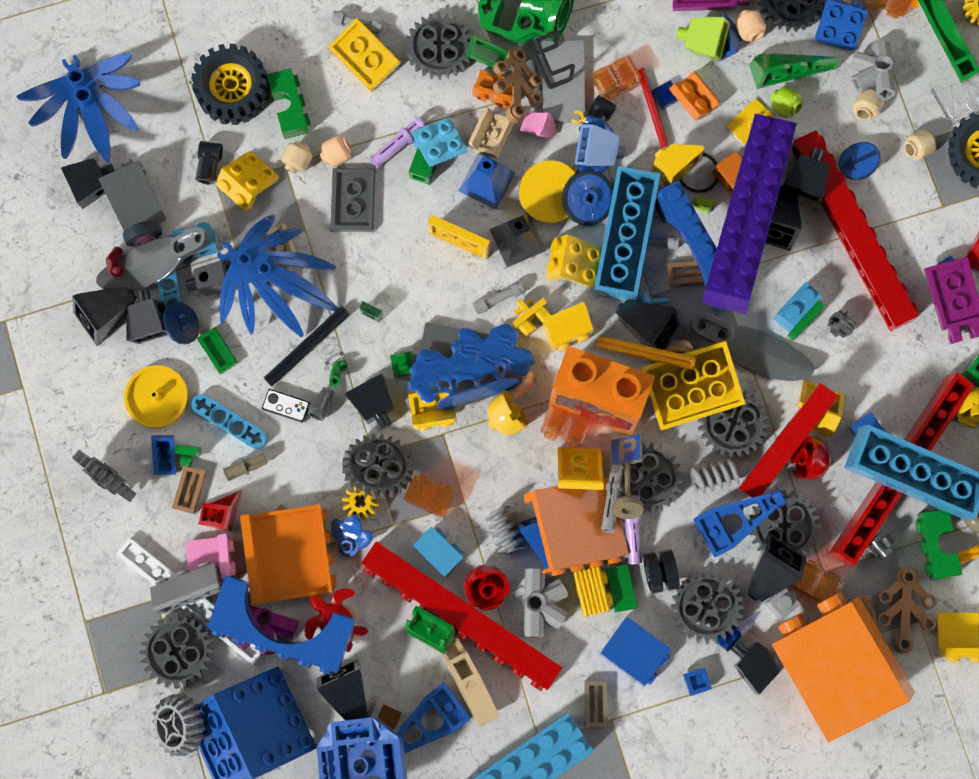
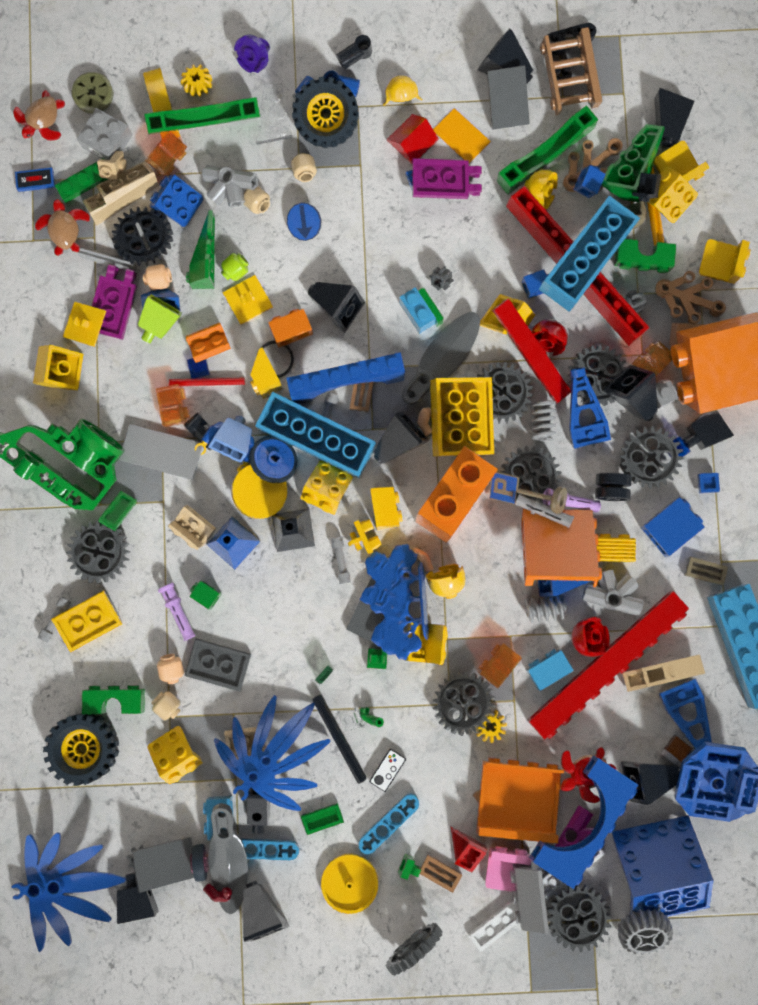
camera: 70 degrees left, 5 degrees up
(145, 319) = (279, 876): black torso -> none
(163, 454) = (405, 889): blue slope -> none
(181, 323) = (291, 846): dark blue piece -> none
(209, 156) = (143, 784): black piece -> none
(244, 466) = (433, 819): dark tan axle -> none
(321, 404) = (396, 739): dark grey cone -> none
(350, 532) = (515, 741): blue plate -> none
(372, 401) = (405, 693): black torso -> none
(430, 630) = (615, 694): green hinge -> none
(439, 142) = (188, 575): medium azure hinge -> none
(459, 237) = (280, 580): yellow tile -> none
(484, 90) = (152, 512): orange bracket -> none
(517, 59) = (130, 487): medium nougat plant -> none
(539, 125) = (195, 484): bright pink tile -> none
(541, 52) = (130, 465): black piece -> none
(565, 426) = (468, 533): clear orange brick -> none
(580, 468) = (511, 531): yellow tile -> none
(621, 588) = (616, 524): green tile -> none
(645, 297) = (376, 435): medium azure hand -> none
(646, 352) = (426, 447): light orange axle -> none
(703, 204) = (305, 363): lime tile -> none
(749, 214) = (333, 325): dark purple brick -> none
(808, 176) = (309, 267): black torso -> none
(860, 240) = (363, 244): red brick -> none

